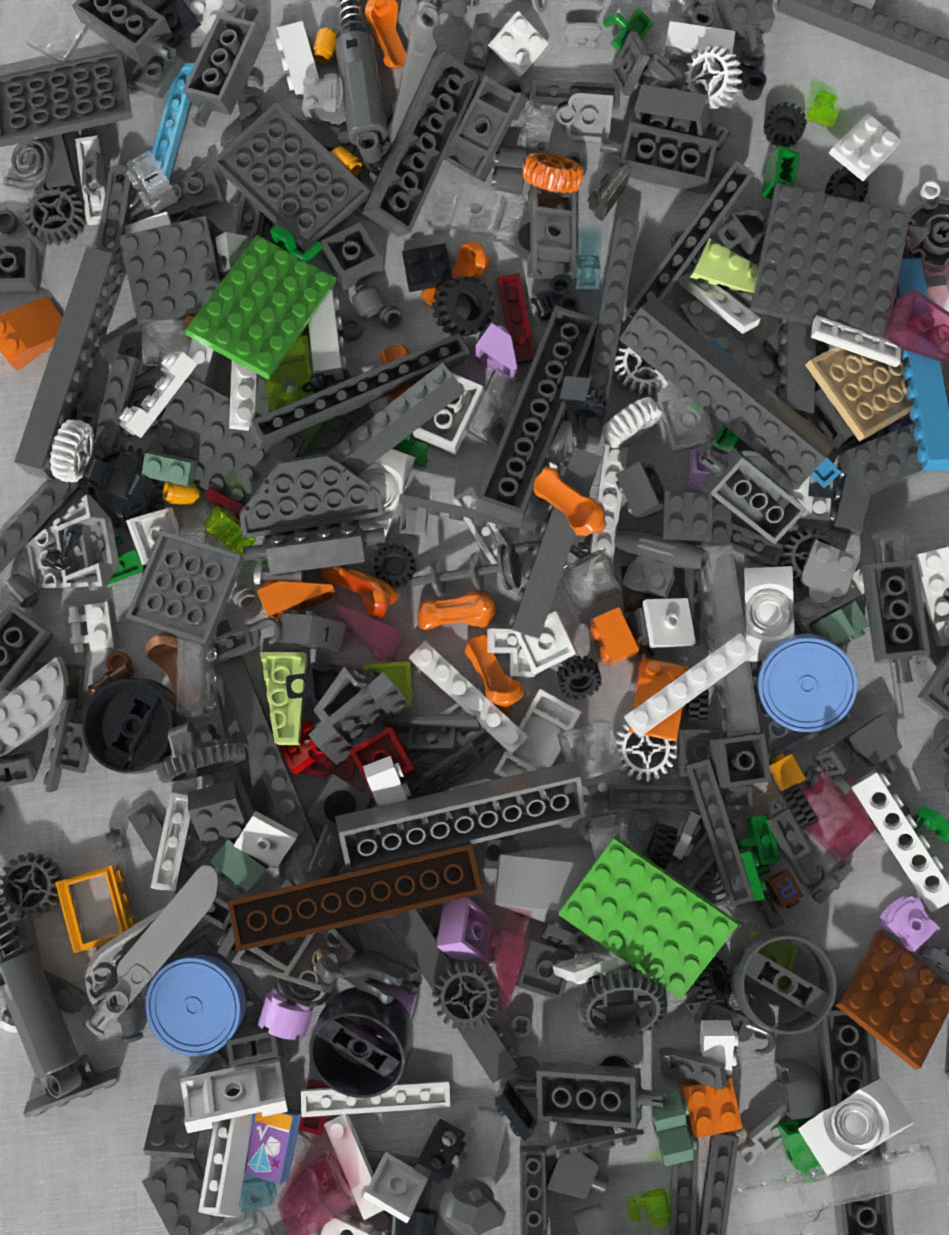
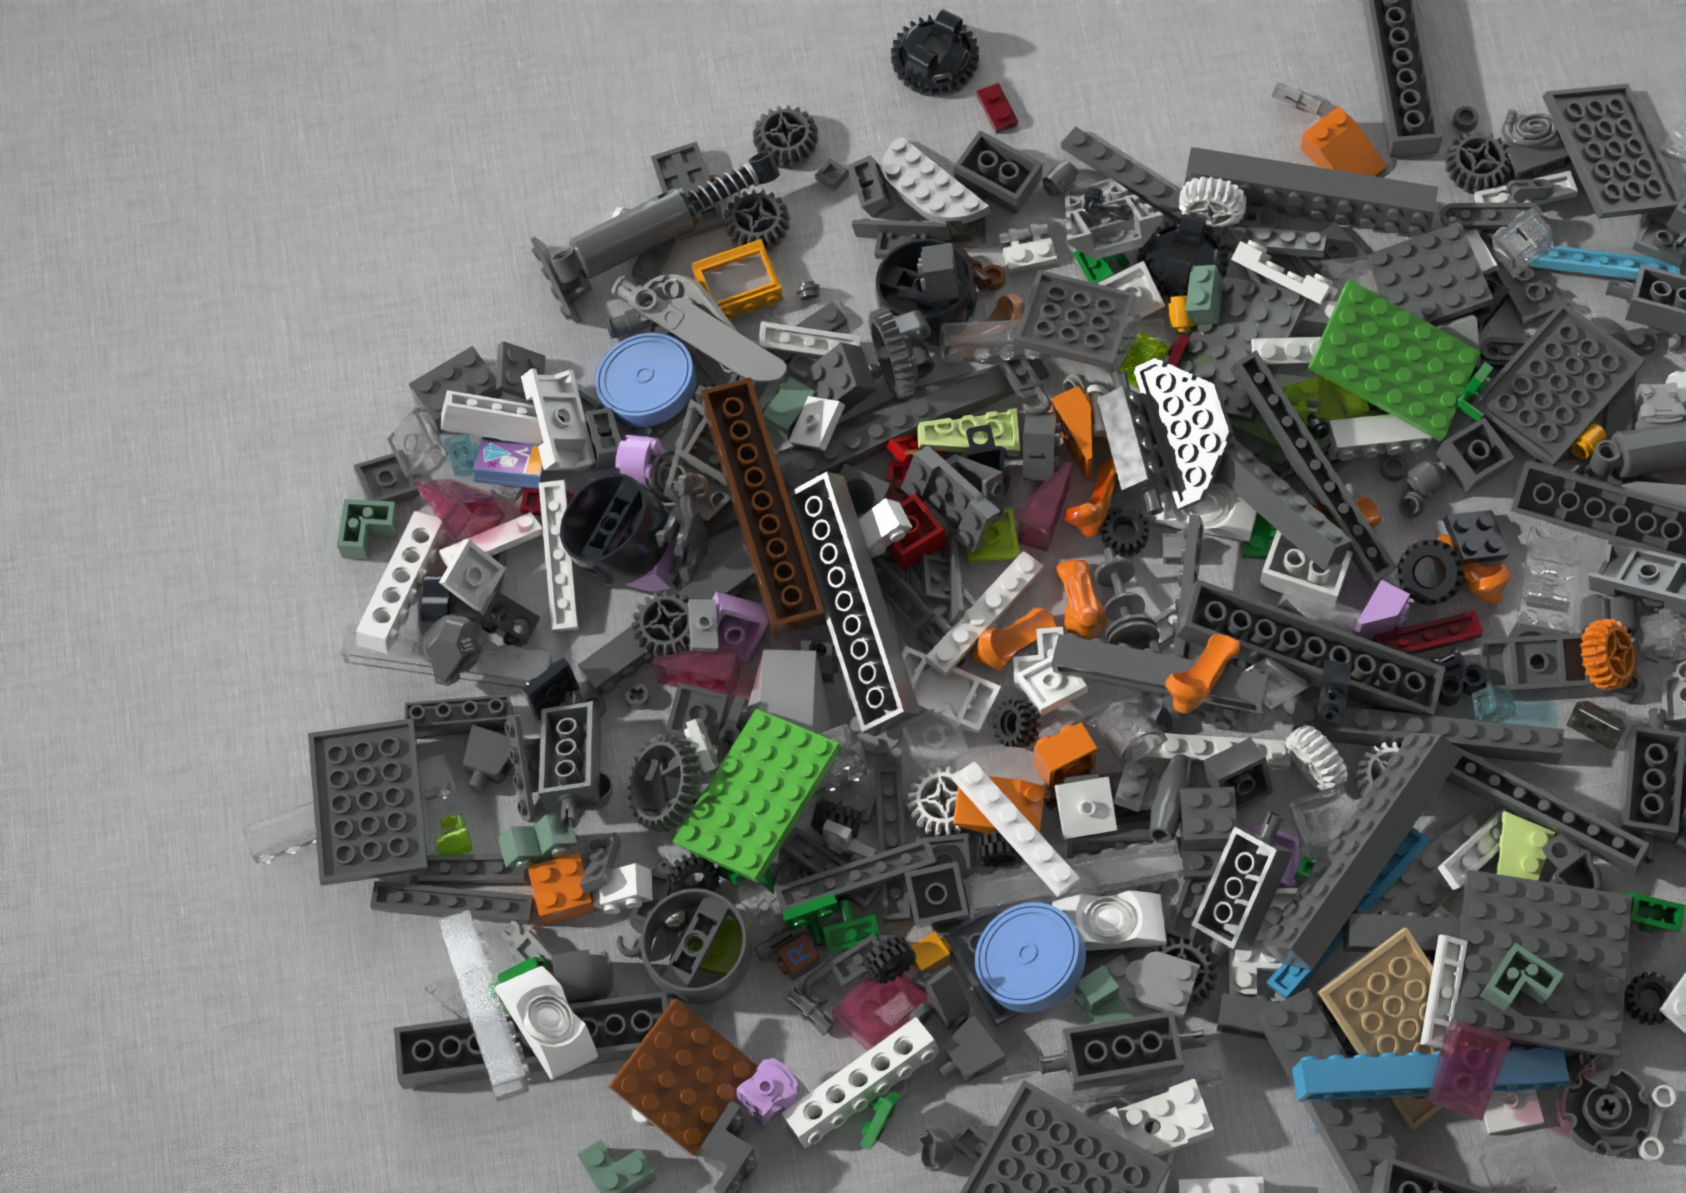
camera: 90 degrees right, 15 degrees down
(127, 709) = (938, 272): none -> dark grey brick
(475, 961) = (703, 625): none -> light grey plate
(855, 279) = (1521, 972): none -> sand green brick

